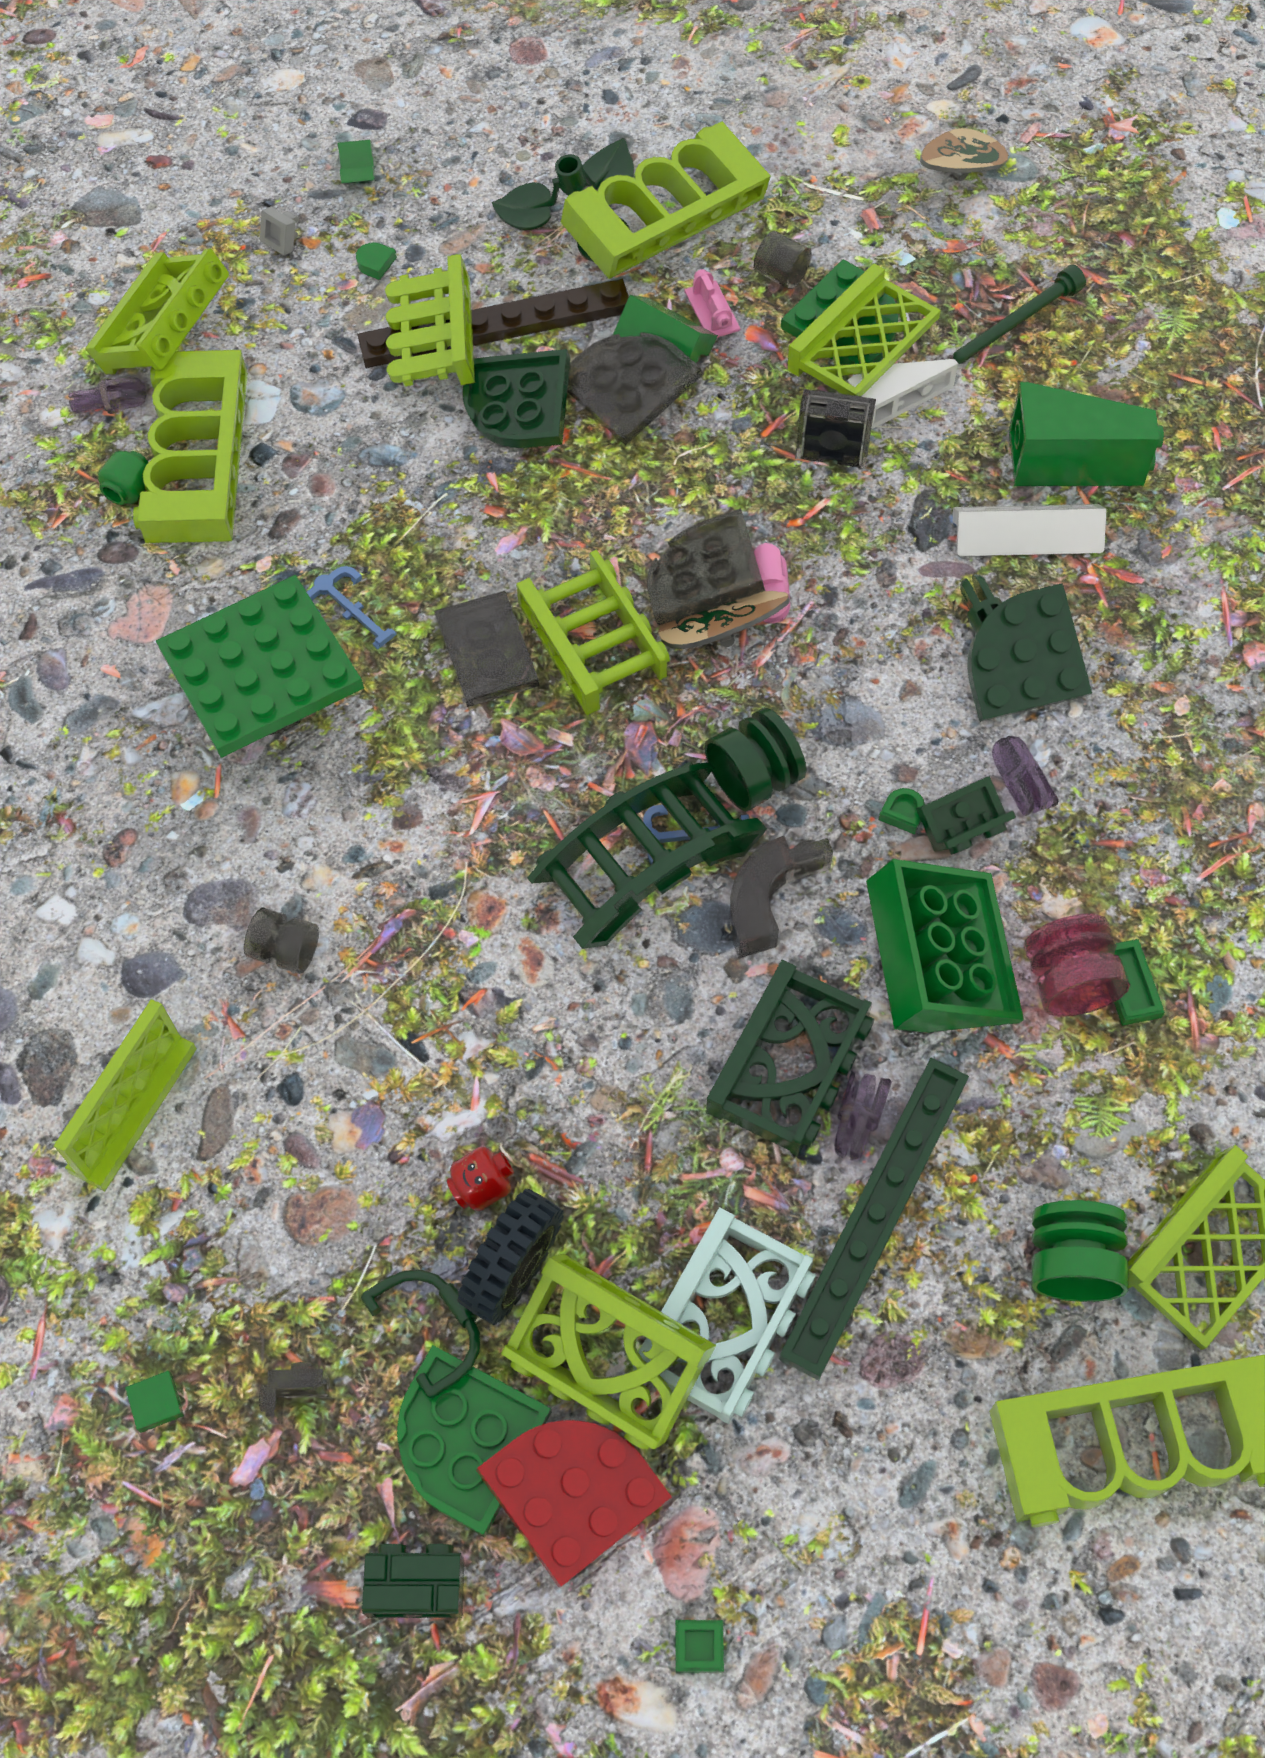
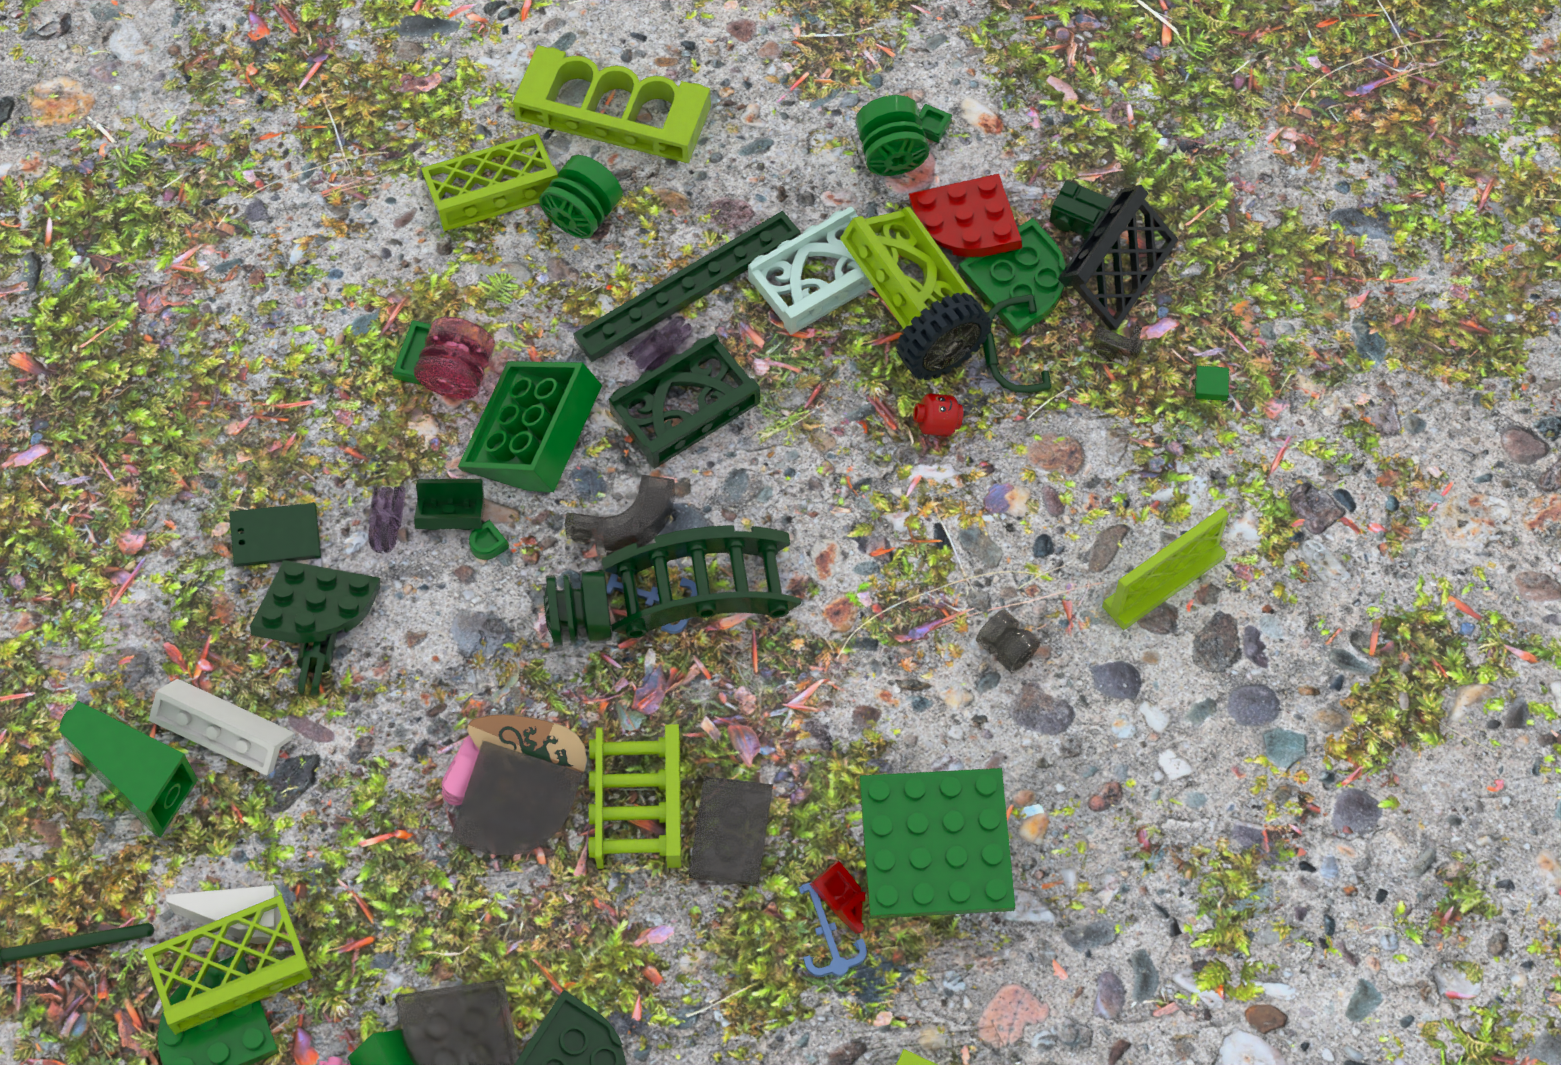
camera: 155 degrees left, 0 degrees up
(356, 638) = (841, 895): none -> red slope
(356, 1523) = (1107, 236): none -> black fence
(732, 1560) = (892, 135): none -> green wheel
(834, 428) = (319, 878): piece -> none
(1122, 718) = (275, 534): none -> dark green container

